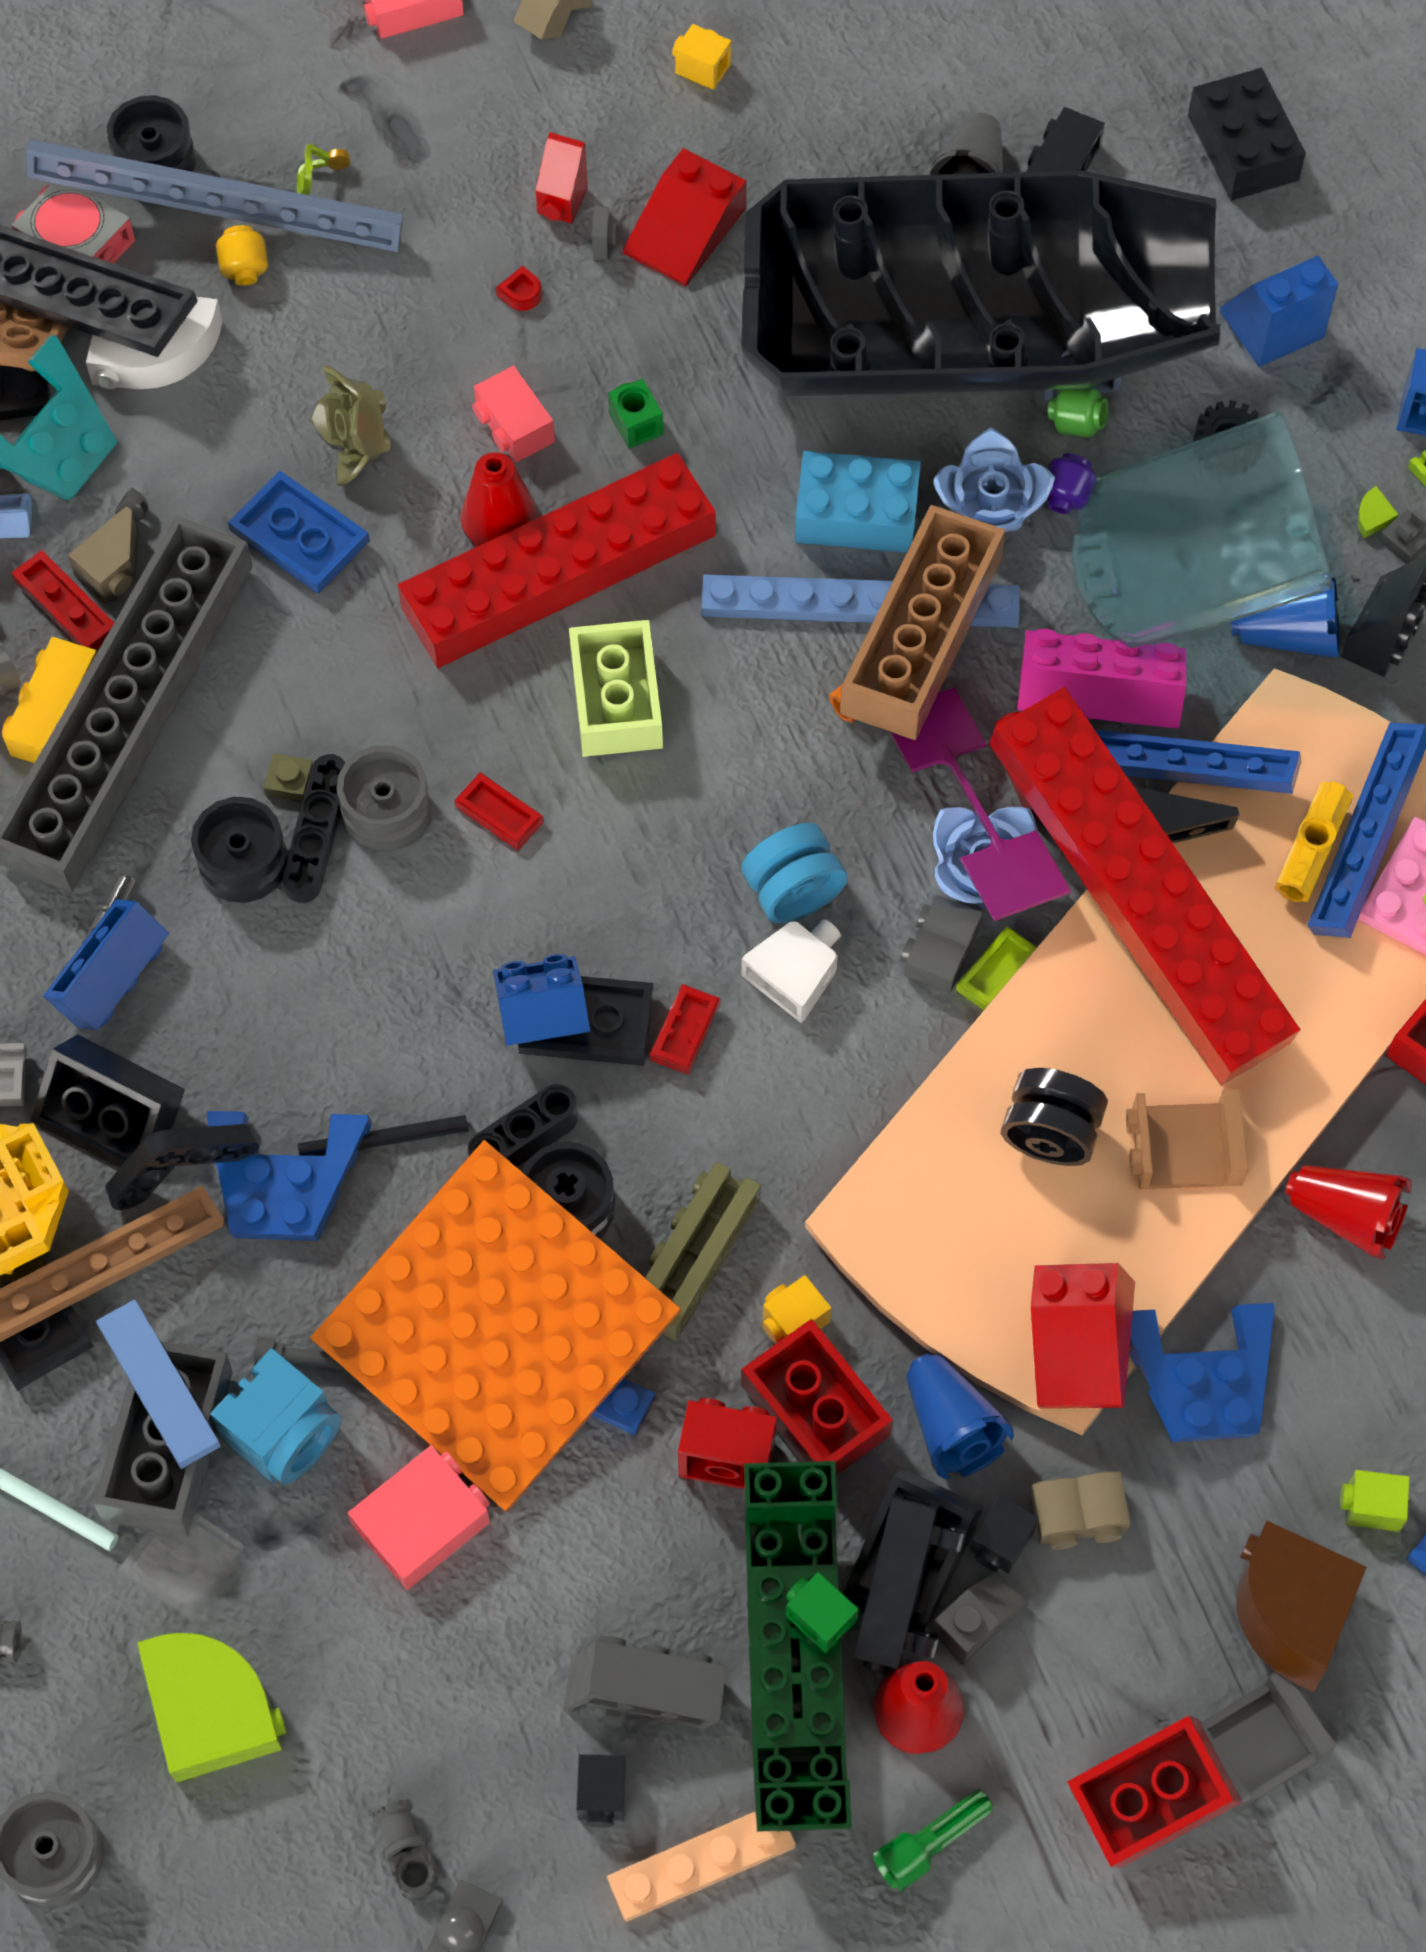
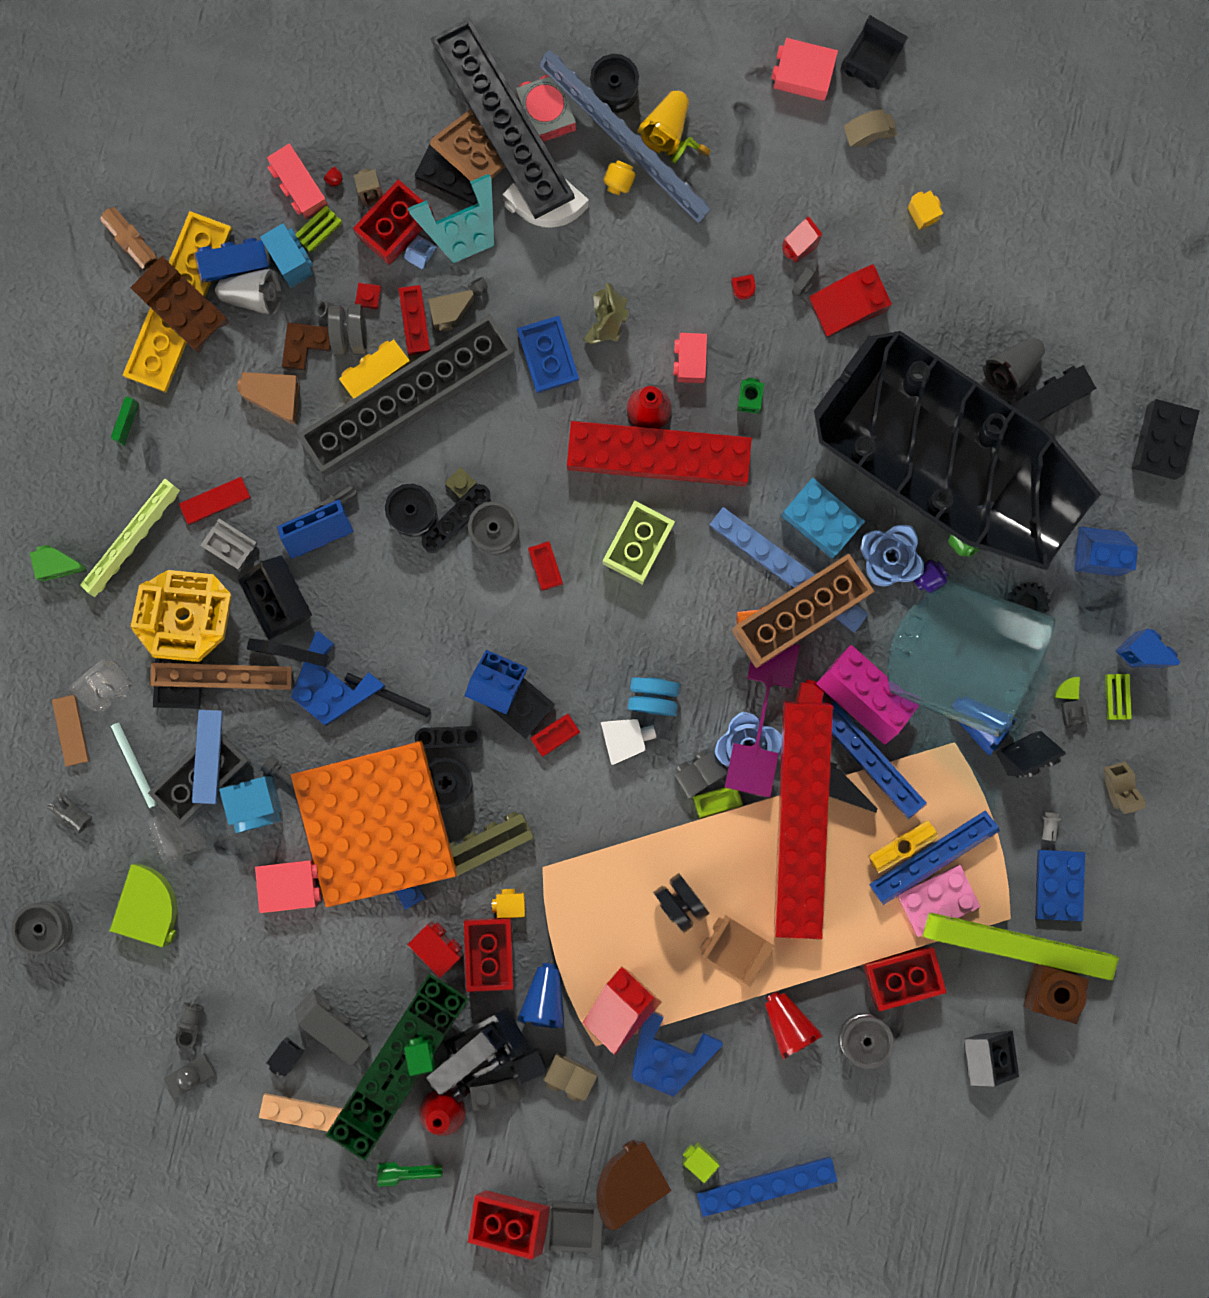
camera: 30 degrees right, 20 degrees up
(262, 150) = (665, 124): none -> yellow cone

